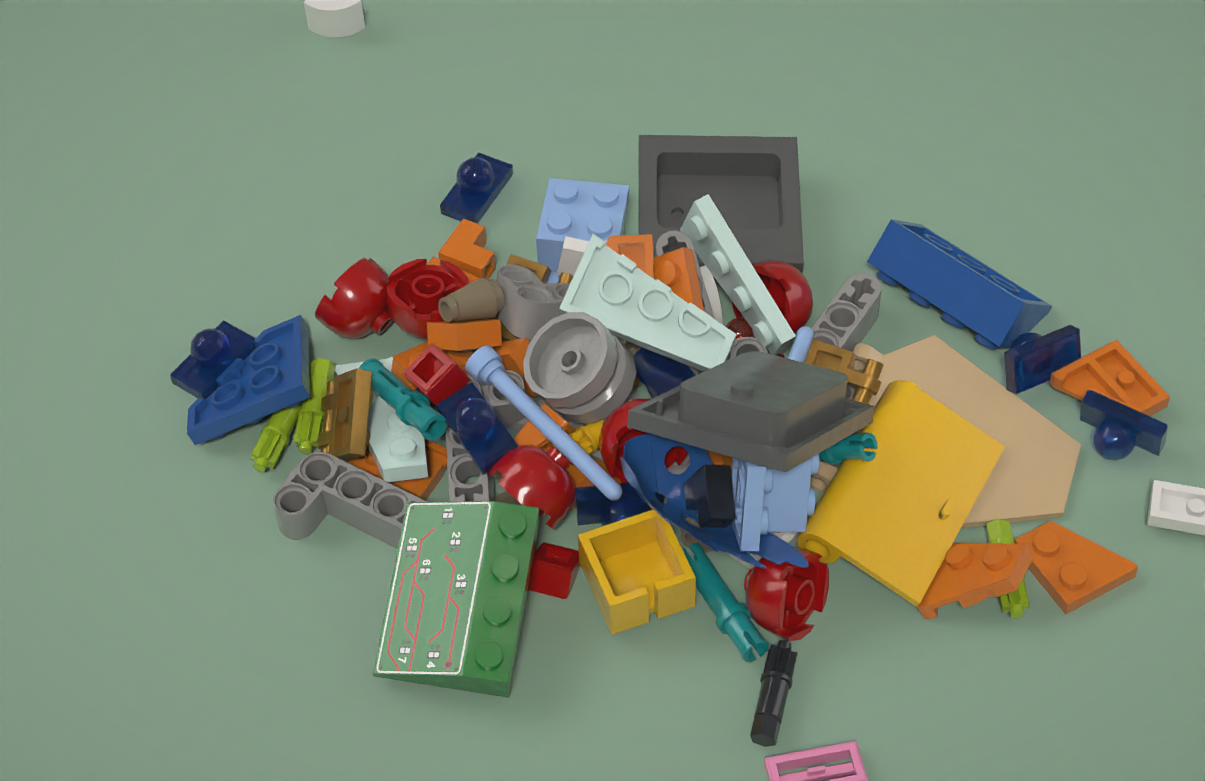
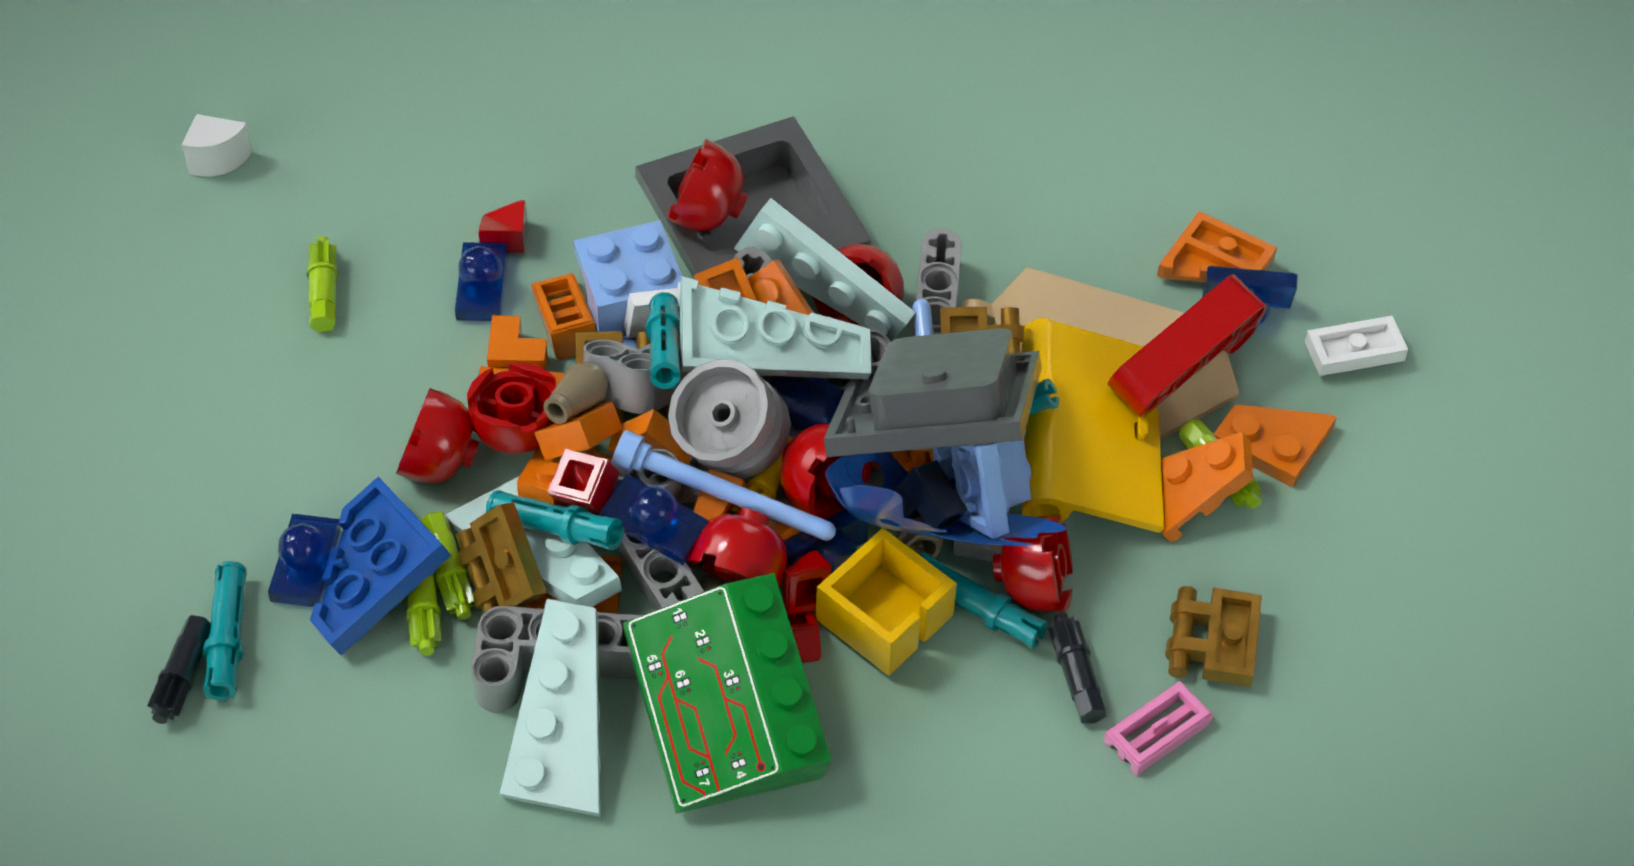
camera: 30 degrees left, 0 degrees up
(73, 409) = (177, 676): none -> black piece
(113, 405) = (224, 647): none -> teal pin
(313, 571) = (557, 728): none -> light aqua wing
(355, 143) = (322, 284): none -> lime piece
(518, 237) = (563, 315): none -> orange slope
(520, 151) = (506, 226): none -> red slope
(552, 293) = (662, 355): none -> teal pin
(576, 522) = (802, 581): none -> red slope
(677, 173) = (709, 190): none -> red cylinder
(922, 722) = (1231, 635): none -> pearl gold plate
(956, 284) = (1021, 210): blue slope -> none
(1026, 449) = (1213, 324): none -> red beam
(1037, 356) = (1139, 253): clear blue tile -> none

